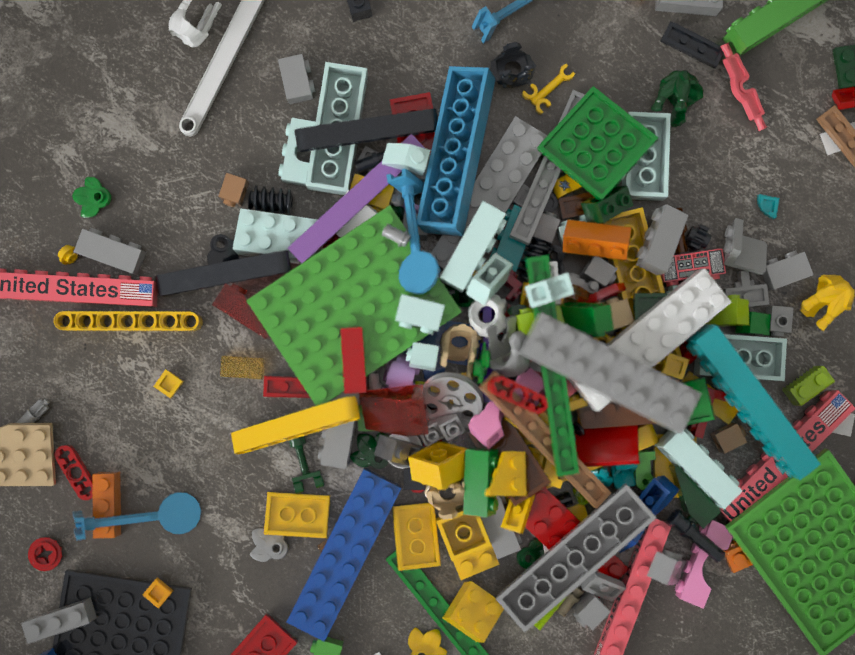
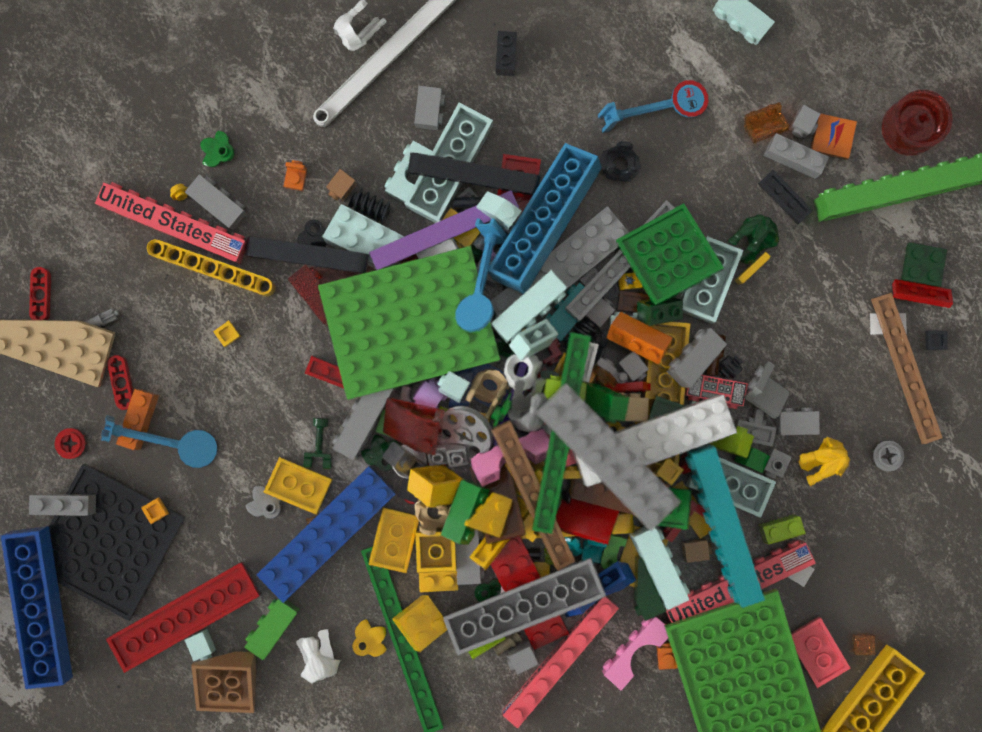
camera: 30 degrees right, 0 degrees up
(182, 196) = (295, 175): none -> orange bracket
(242, 367) = (295, 341): clear yellow tile -> none
(296, 425) = (323, 407): yellow beam -> none
(353, 360) = (391, 368): red tile -> none
(396, 235) = (467, 275): light grey pin -> none
(419, 313) = (462, 348): light aqua brick -> none
(533, 395) = (529, 462): red beam -> none
(538, 98) = (634, 197): yellow bar -> none
(549, 290) = (581, 367): light aqua slope -> none
(603, 586) = (540, 639): light grey plate -> none
(667, 567) = (601, 643): light grey brick -> none
(685, 129) = (752, 268): none -> yellow tile
(688, 530) = (631, 617): black pin -> none
(749, 97) = (817, 260): coral piece -> none
(768, 205) = (802, 360): teal tile -> none

